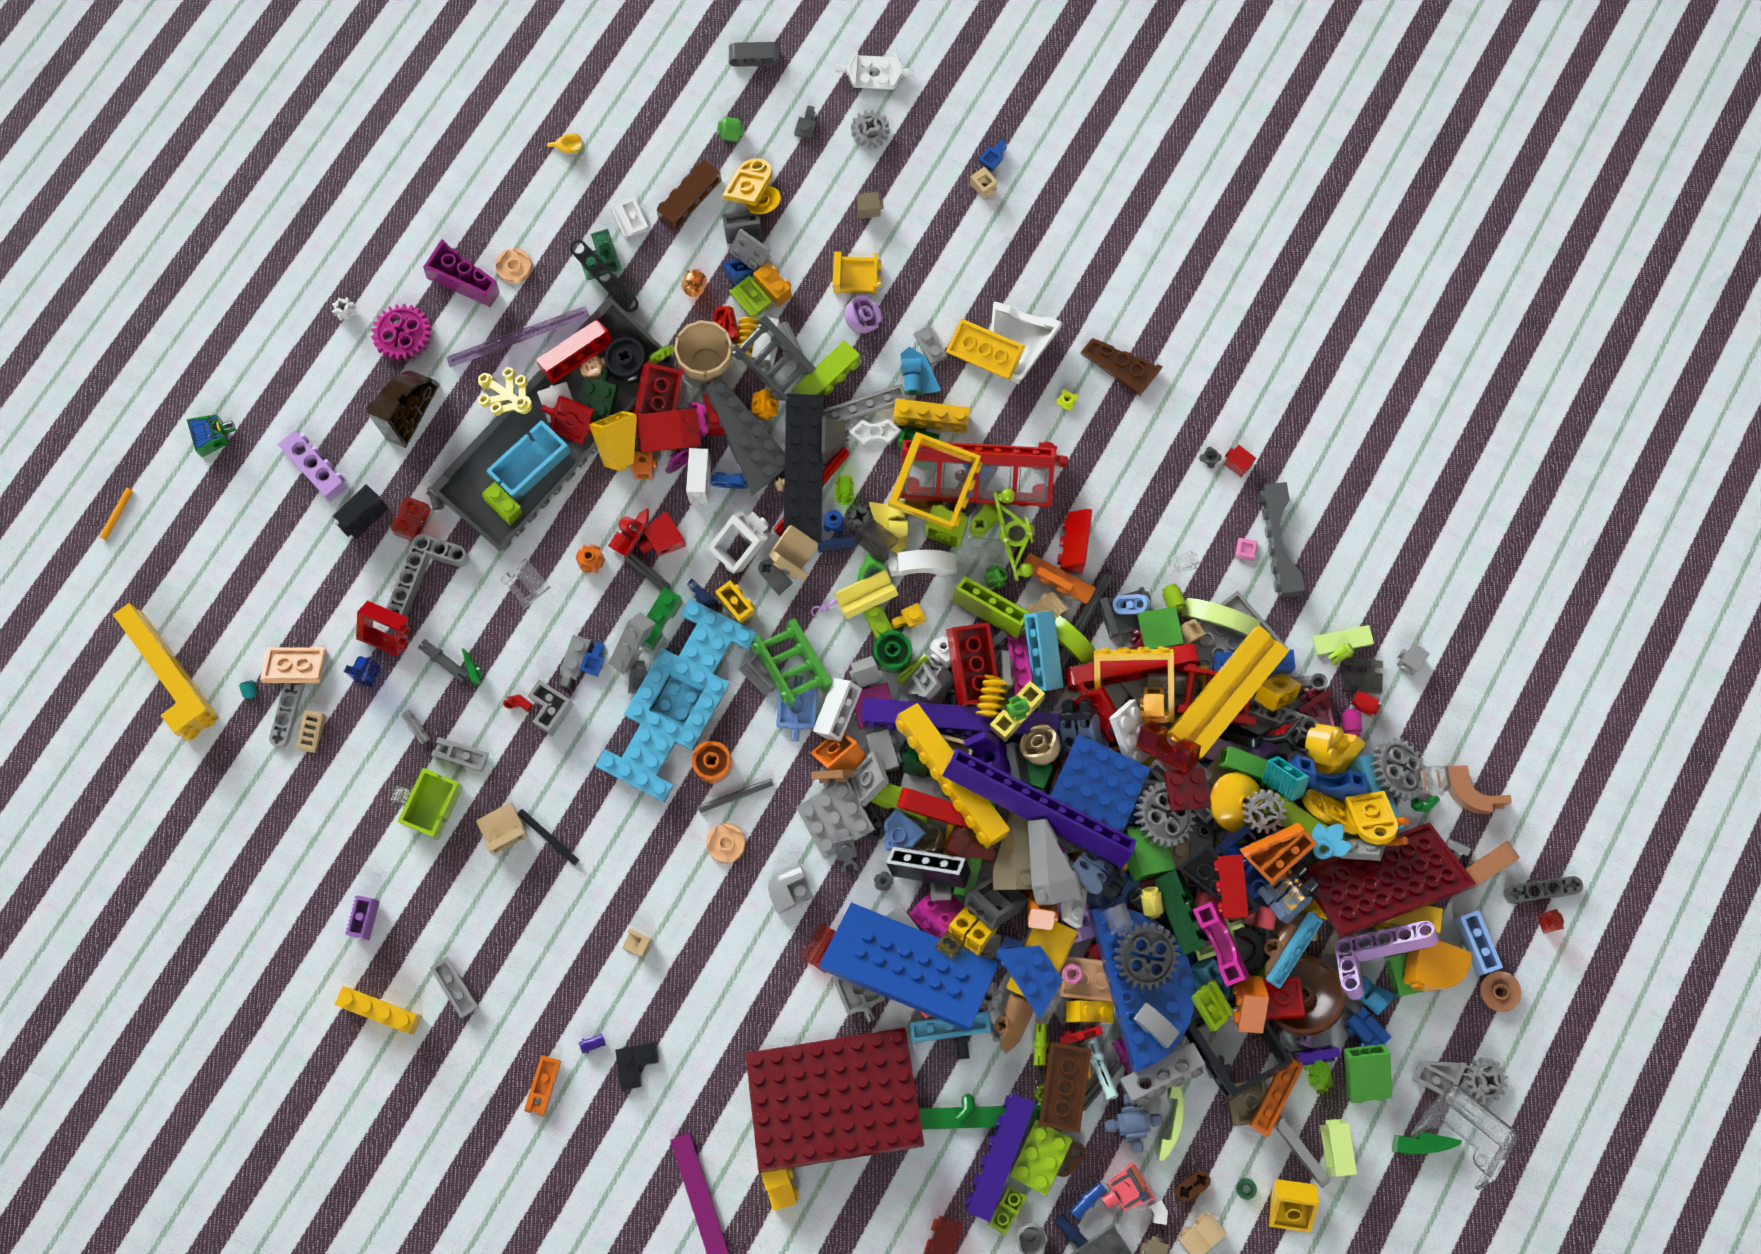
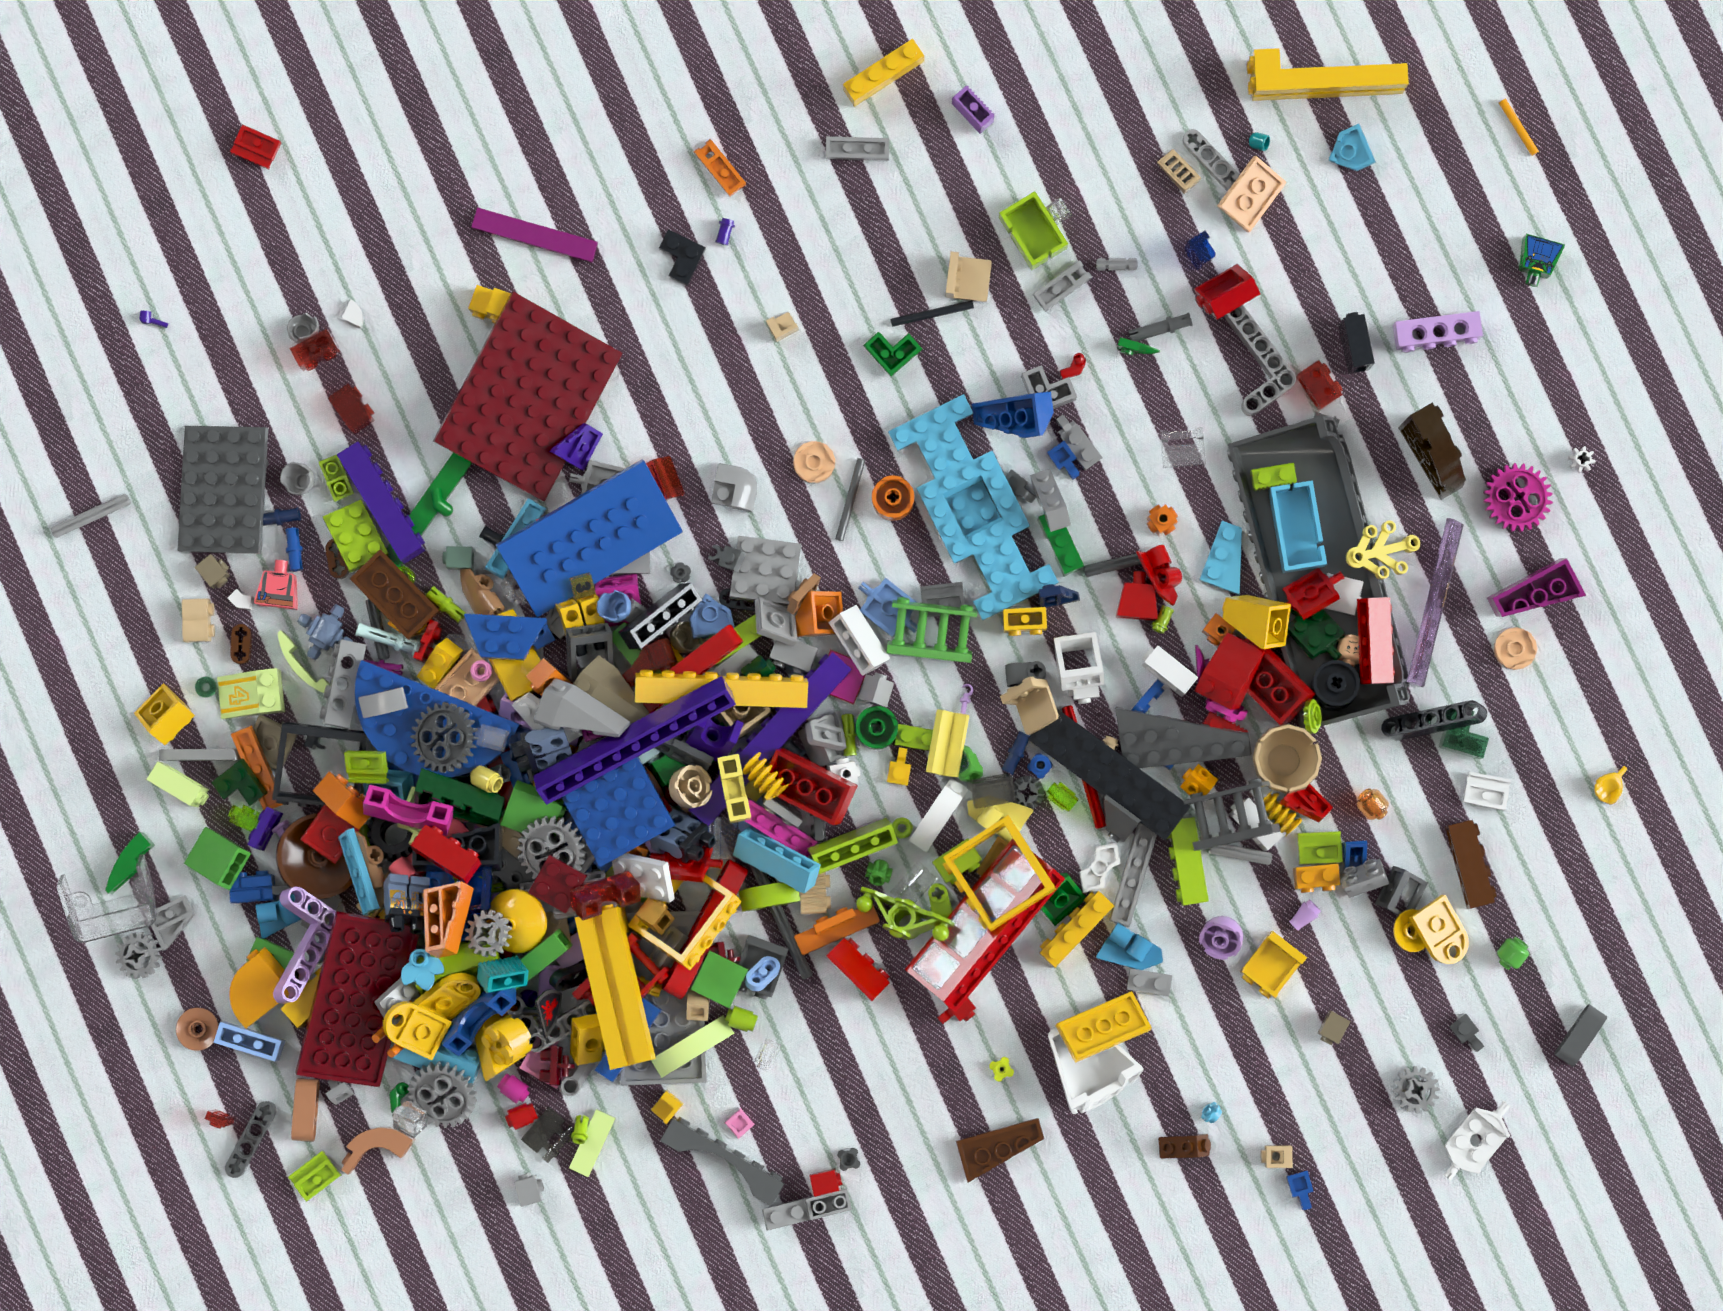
camera: 130 degrees right, 10 degrees up
(210, 616) = (1352, 149): none -> medium azure plate
(581, 708) = (1016, 415): none -> blue wedge
(588, 499) = (1224, 559): none -> medium azure wing
(604, 841) = (894, 357): none -> green brick
(659, 510) = (1163, 619): none -> lime pin
(804, 275) = (1305, 915): none -> lavender cone
(843, 1031) = (578, 446): none -> dark purple wing
(947, 906) = (614, 606): none -> medium blue hair
(950, 579) = (907, 823): none -> lime plate
(988, 244) = (1211, 1112): none -> medium azure plate
(998, 1061) = (458, 558): none -> sand green brick
(1017, 708) = (733, 786): bright green gear -> none
(1026, 246) = (1184, 1146): none -> reddish brown bracket
(1224, 1147) = (251, 693): none -> yellowish green slope
(1268, 460) = (806, 1209): none -> light grey slope
(1276, 605) = (667, 1107): none -> yellow panel
(1293, 1101) = (240, 778): none -> dark green plate
(1530, 821) = (314, 1176): none -> lime plate

